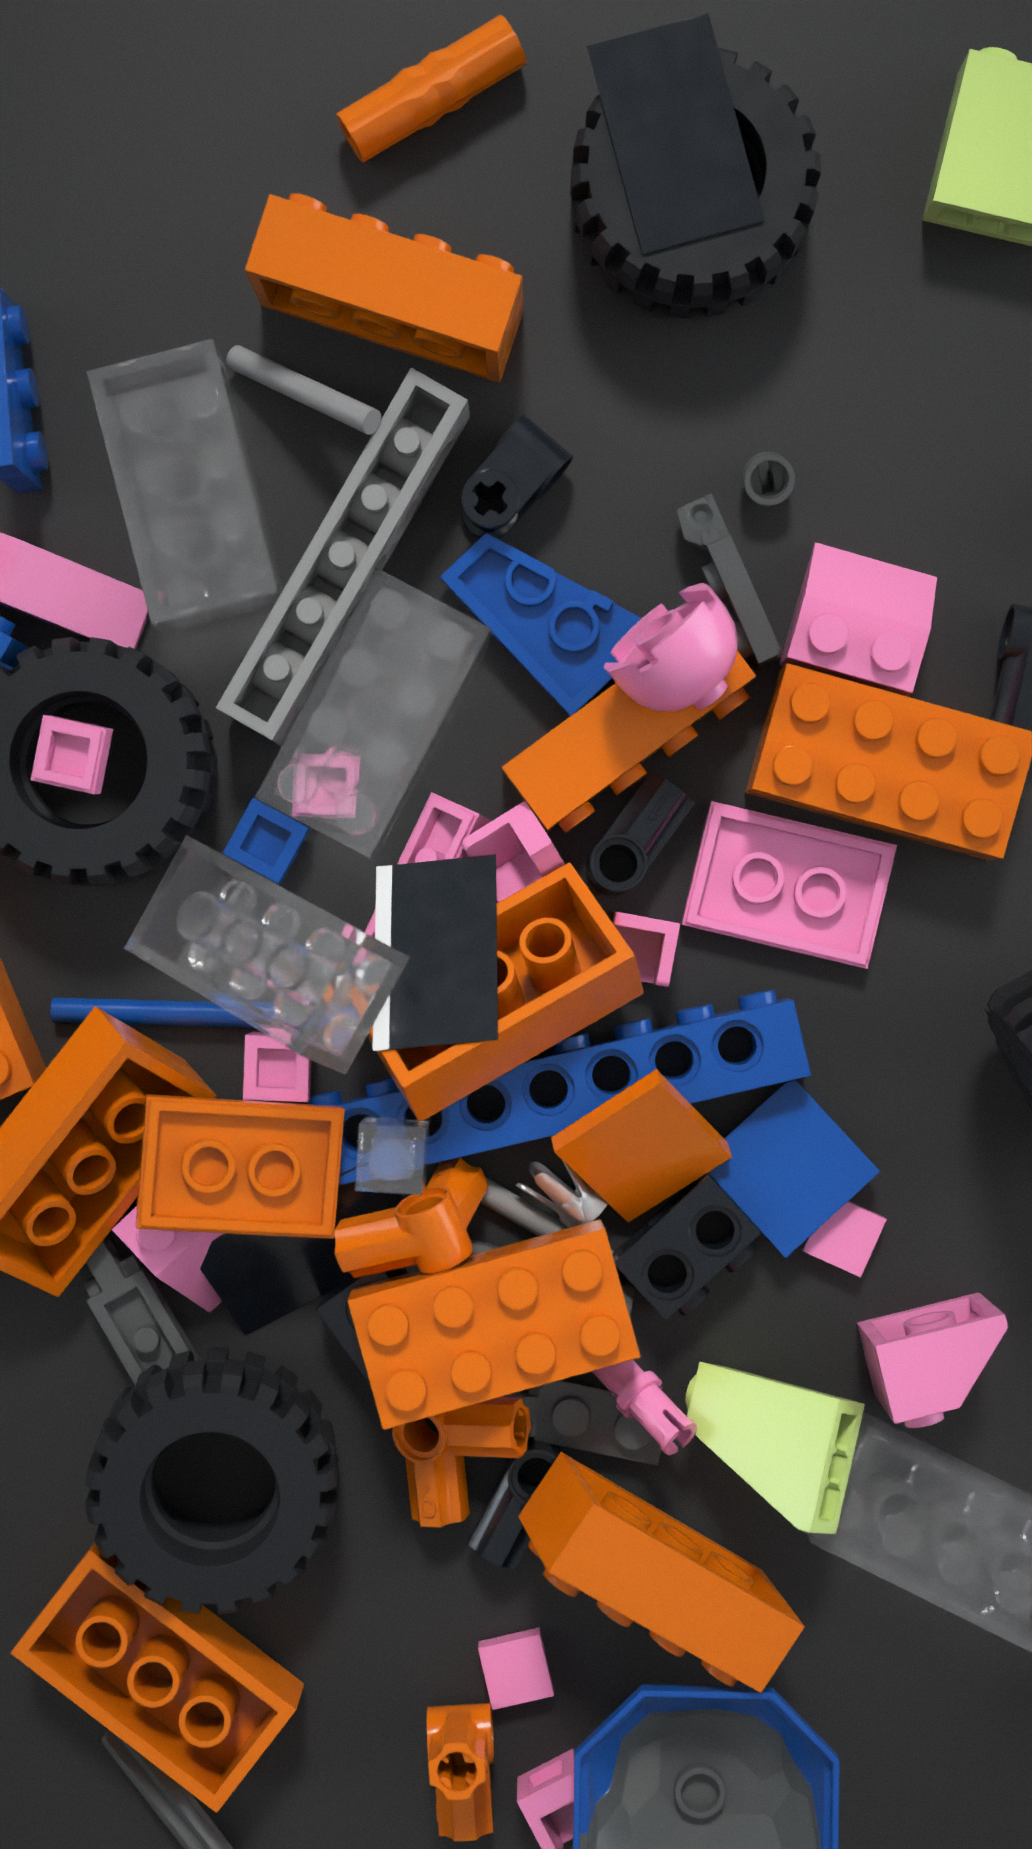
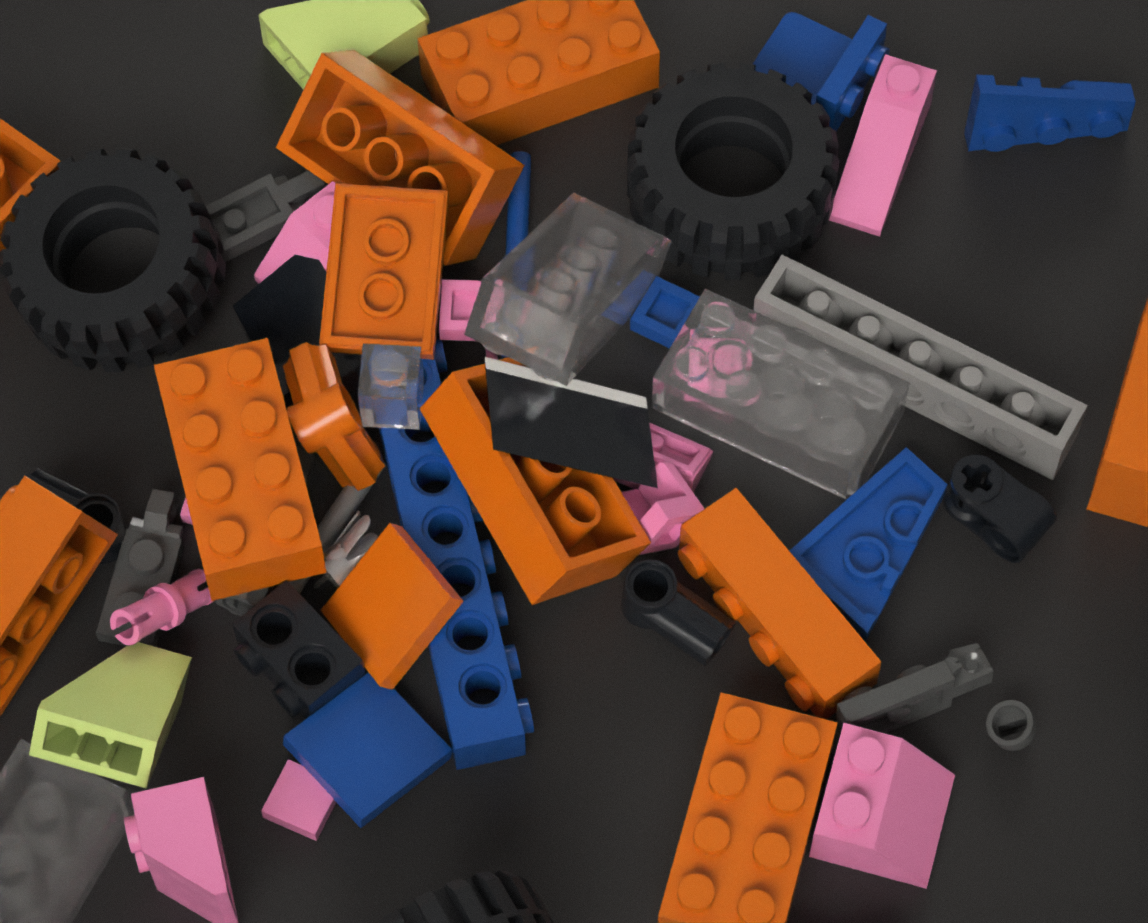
camera: 90 degrees right, 25 degrees down
(71, 754) = (738, 138): bright pink tile -> none
(186, 486) = (975, 243): clear brick -> none
(304, 389) = (1064, 332): light grey bar -> none
(437, 1459) = (134, 444): orange piece -> none
(652, 943) = (573, 621): bright pink panel -> none
(677, 653) = (838, 615): bright pink cylinder -> none
(788, 884) = (631, 752): bright pink tile -> none

